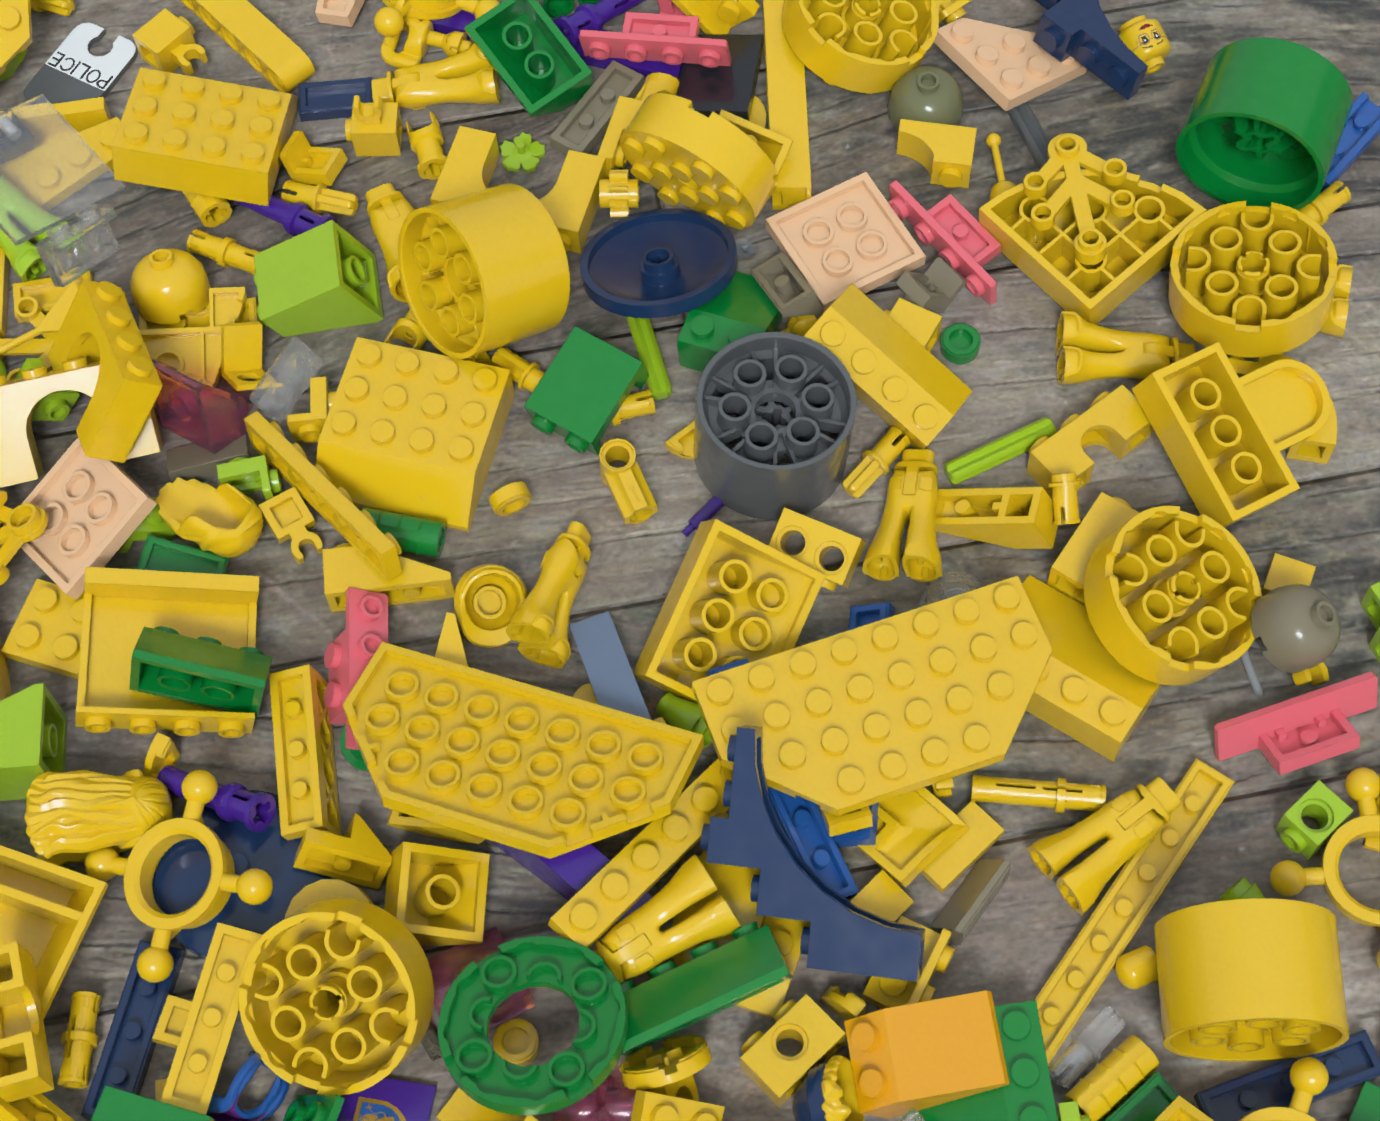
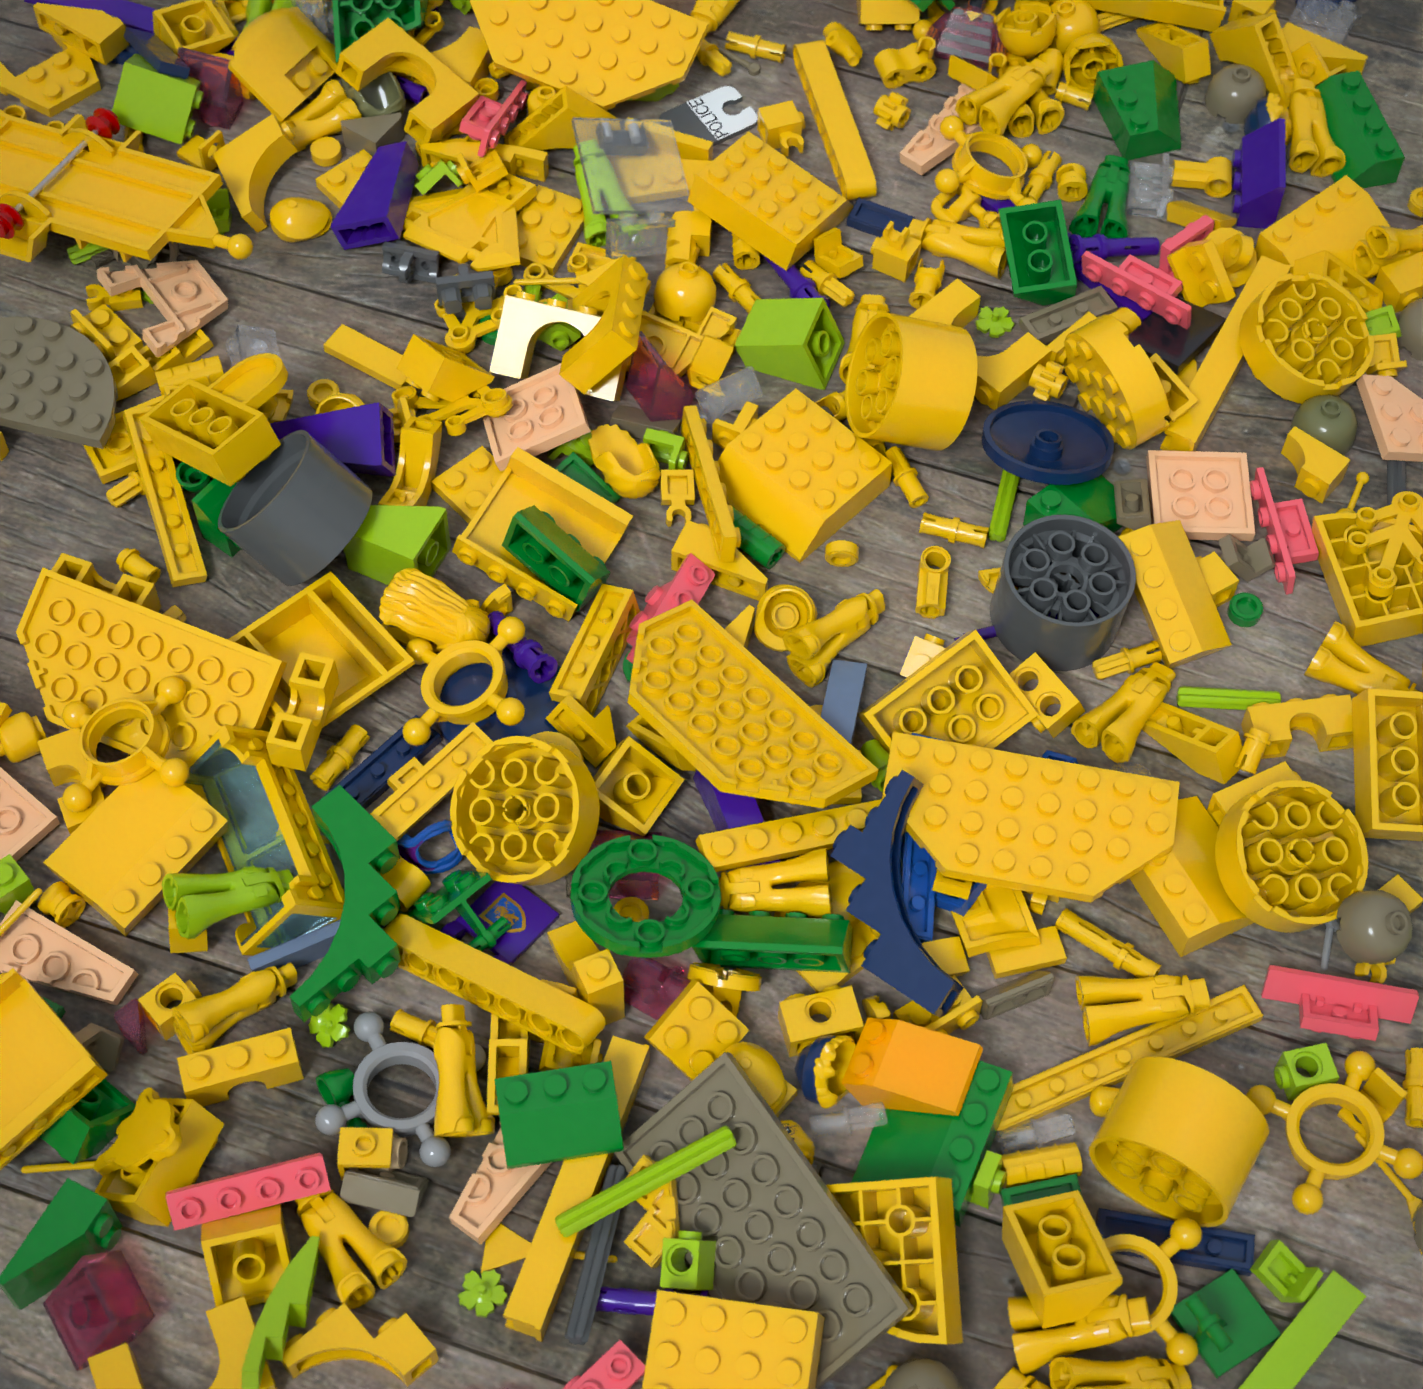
camera: 25 degrees right, 5 degrees down
(137, 221) = (688, 238): none -> yellow plate
(584, 390) = (938, 503): green panel -> none
(662, 568) = (921, 652): none -> yellow bracket

